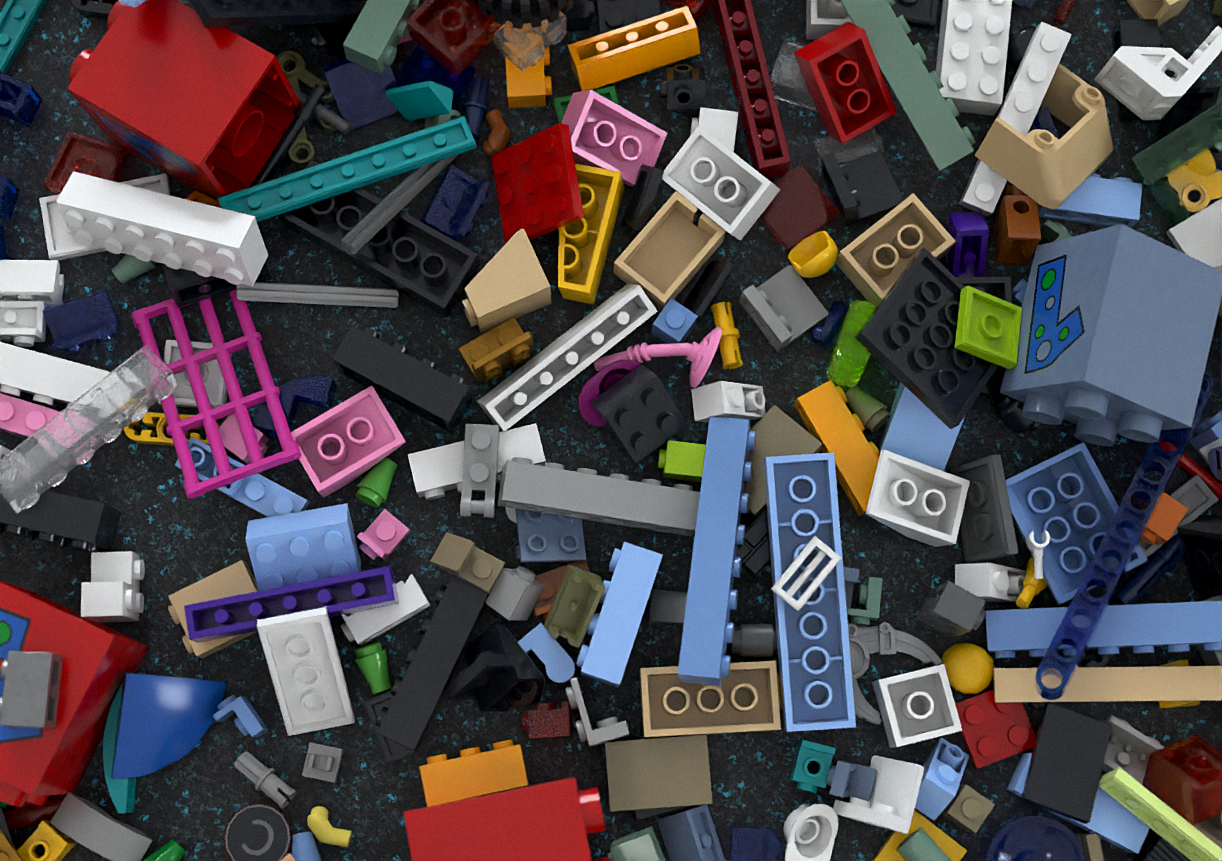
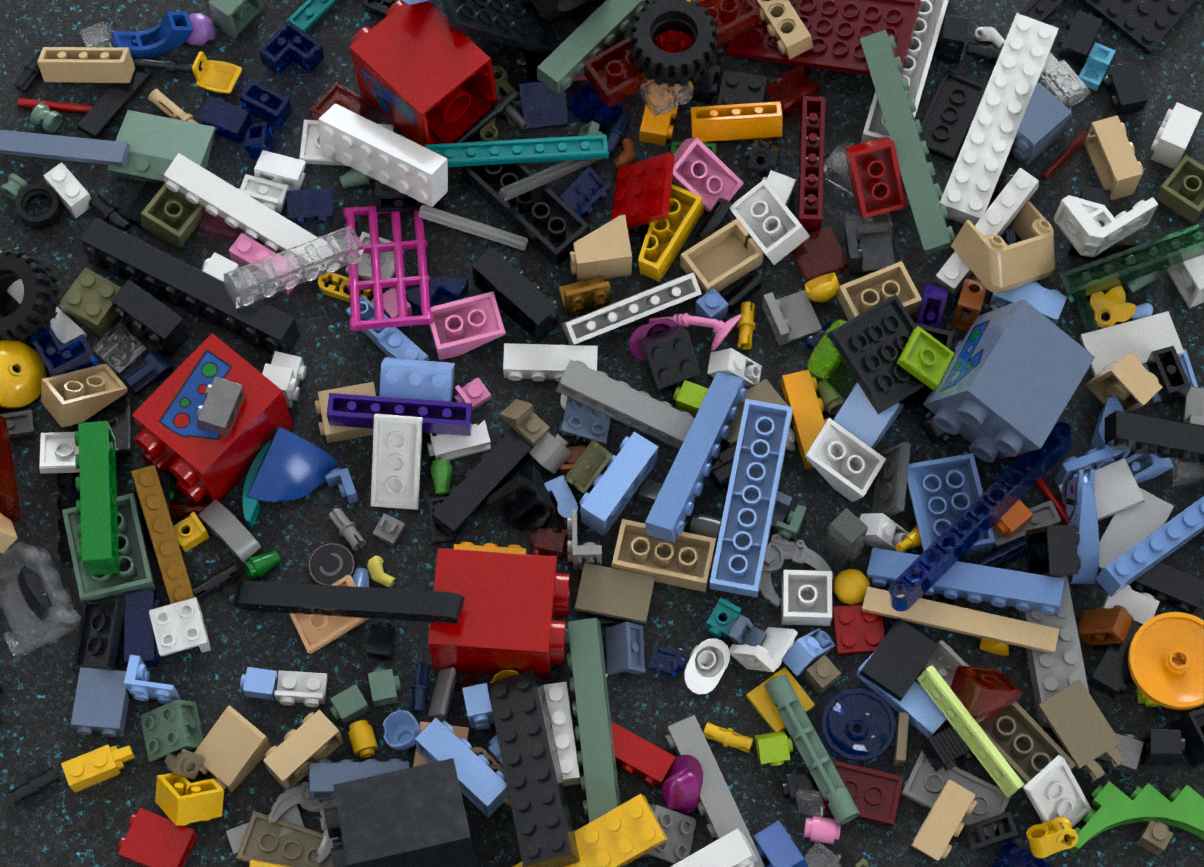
camera: 20 degrees right, 10 degrees down
(376, 484) = (475, 361): bright green cone -> none
(421, 100) = (580, 118): teal slope -> none
(479, 469) = (550, 364): light grey plate -> none
(824, 550) = (768, 469): white tile -> none
(1038, 552) = (918, 515): white hand -> none

